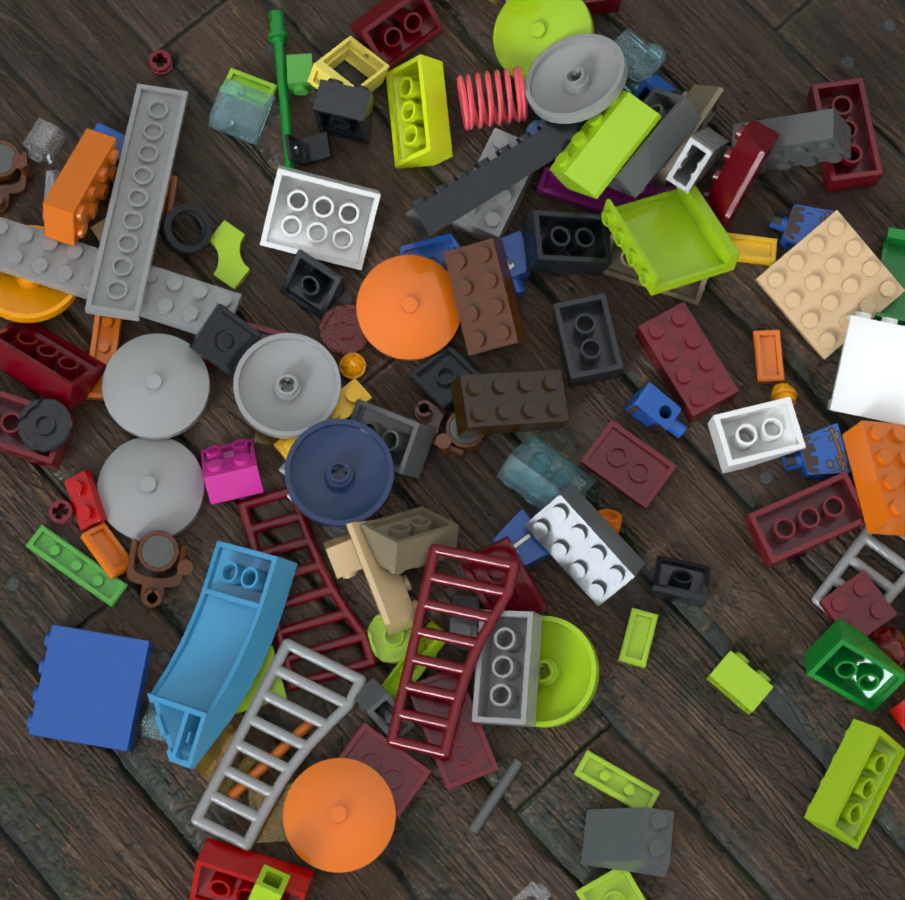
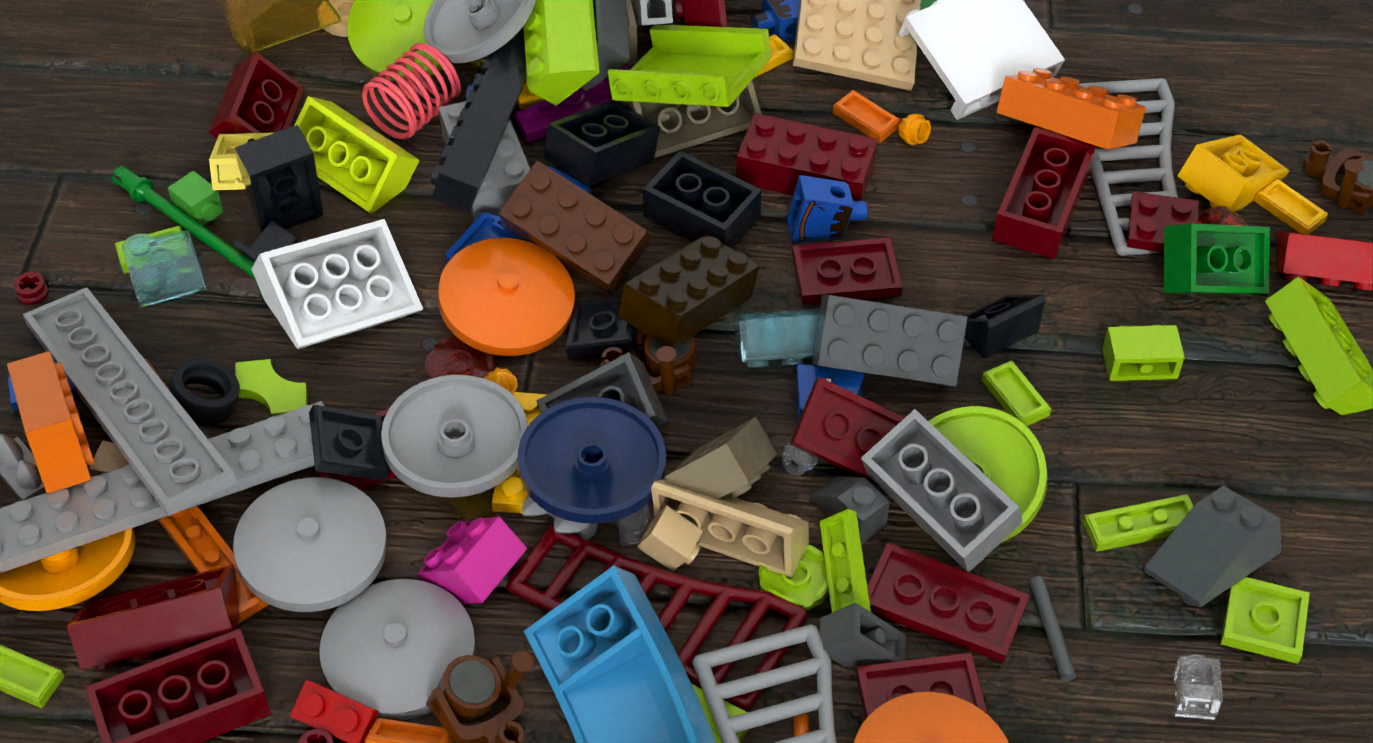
camera: 45 degrees left, 25 degrees down
(45, 425) = (220, 658): black tile -> none
(312, 284) = (387, 344): black slope -> none
(475, 643) = (907, 517): dark red bar -> none
(755, 434) = (926, 166): white slope -> none
(822, 457) = (994, 145): blue torso -> none

